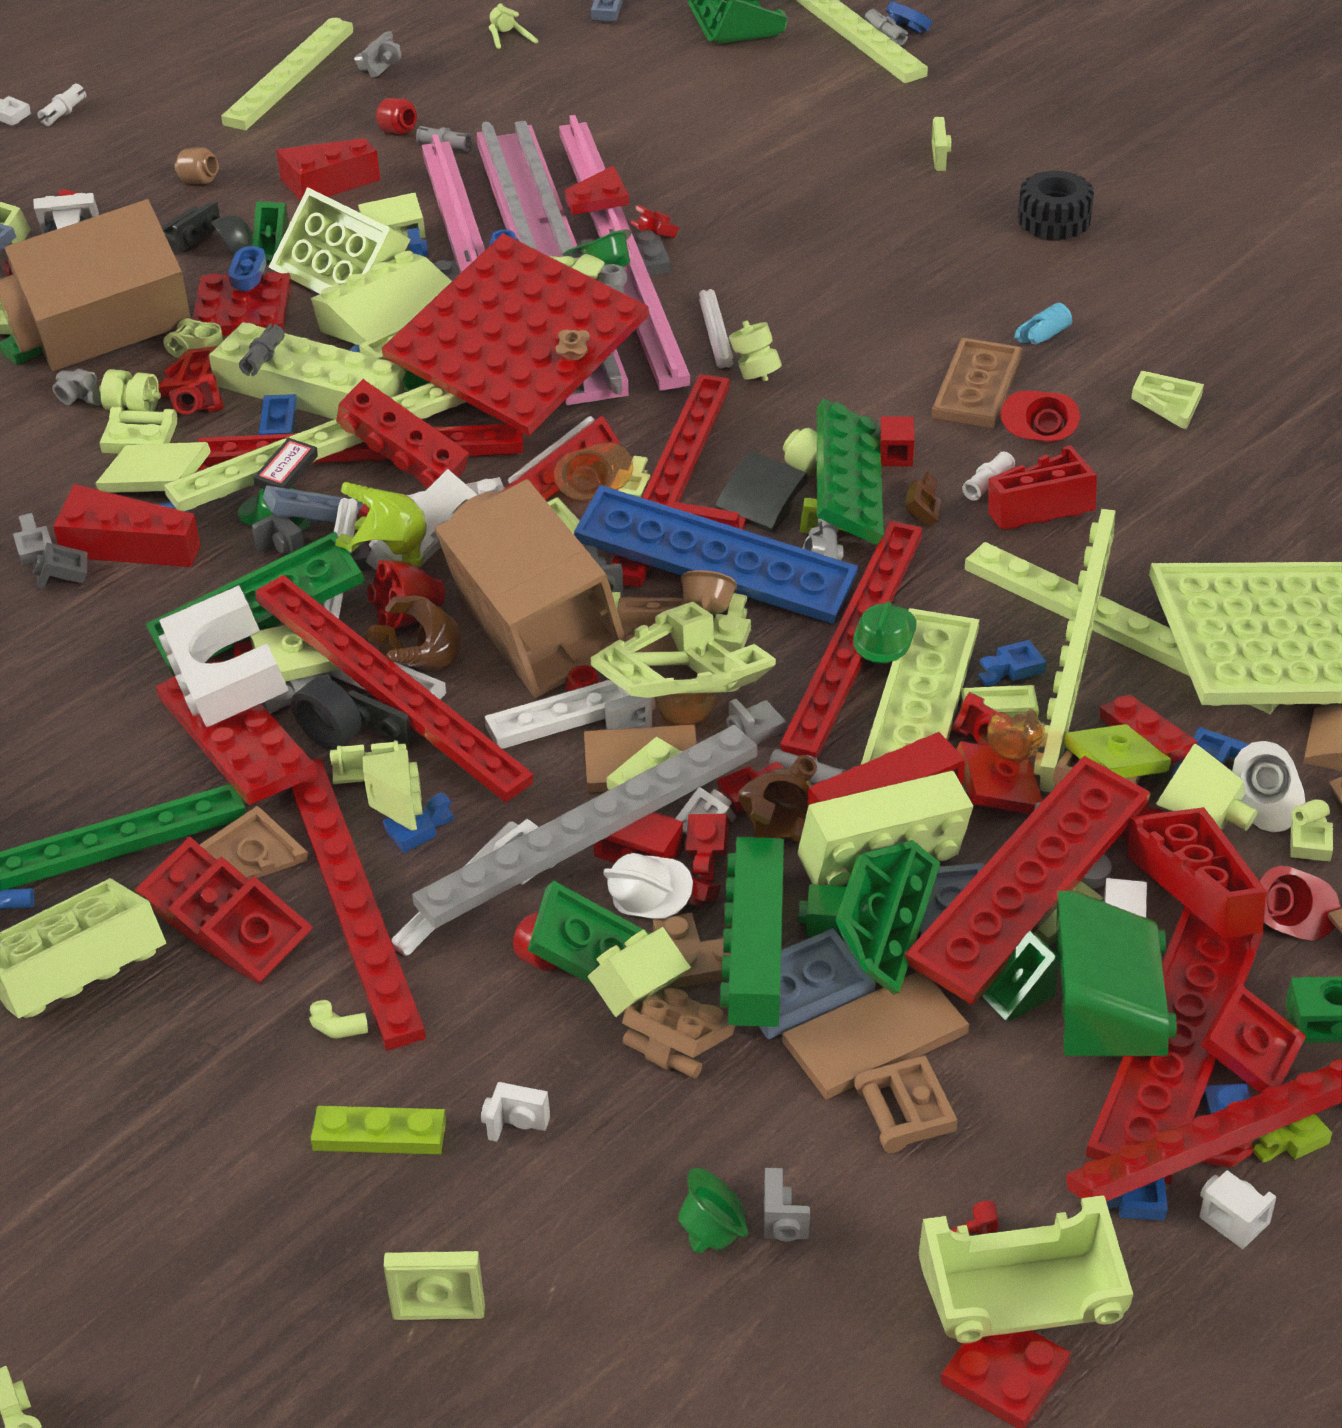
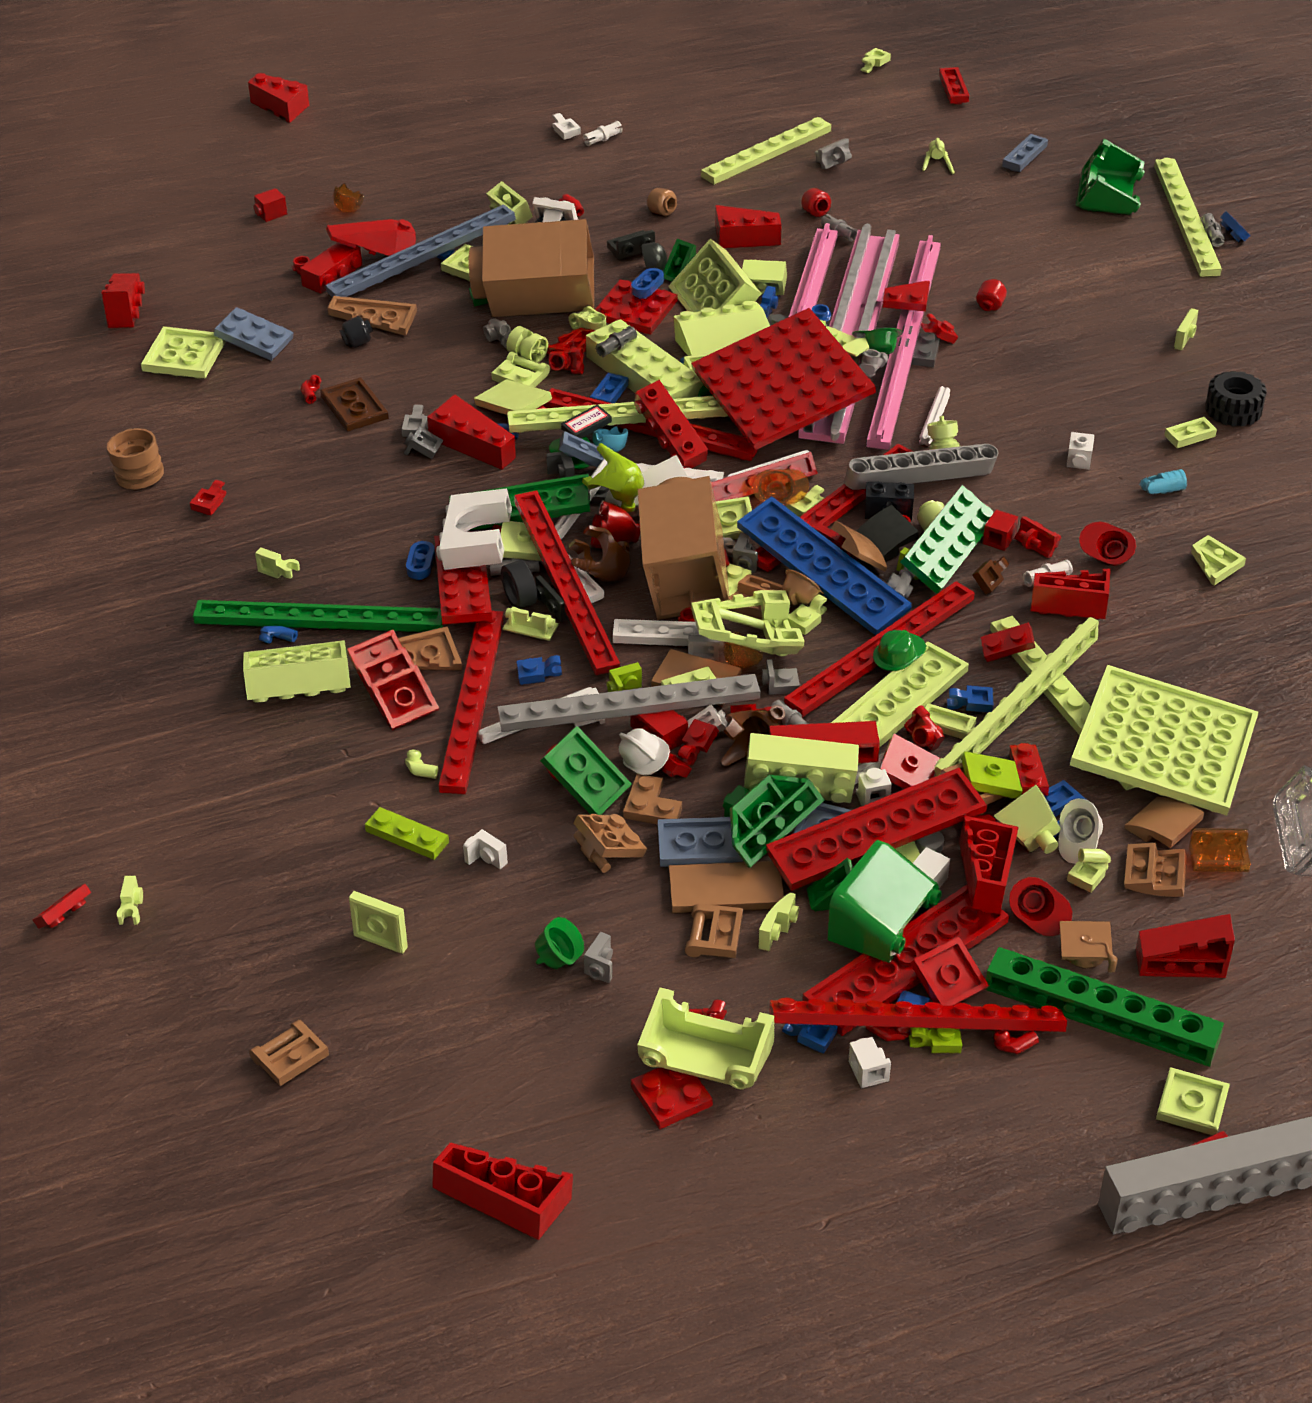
camera: 25 degrees right, 0 degrees up
(156, 726) = (420, 560): none -> blue plate
(323, 479) = (610, 438): none -> medium azure hair
(393, 786) = (532, 641): yellowish green slope -> none
(552, 794) = (625, 678): none -> lime bracket
(572, 344) = (808, 397): medium nougat plate -> none
(638, 970) = (600, 795): yellowish green brick -> none
(686, 164) = (991, 295): none -> red head
(728, 445) = (882, 495): none -> black brick
(746, 515) = (860, 546): none -> medium nougat slope
(749, 393) = (922, 465): none -> light grey beam
(755, 933) = (686, 800): green brick -> none
(921, 317) = (1080, 450): none -> white brick
(945, 436) = (1037, 537): none -> red hips
(977, 383) = (1093, 502): medium nougat tile -> none
(982, 1059) = (778, 920): none -> yellowish green slope
(986, 819) = (871, 783): none -> white brick
(1007, 576) = (1008, 642): none -> red plate
(1017, 736) = (929, 741): clear orange hair -> none
(1030, 259) = (1190, 432): none -> yellowish green plate

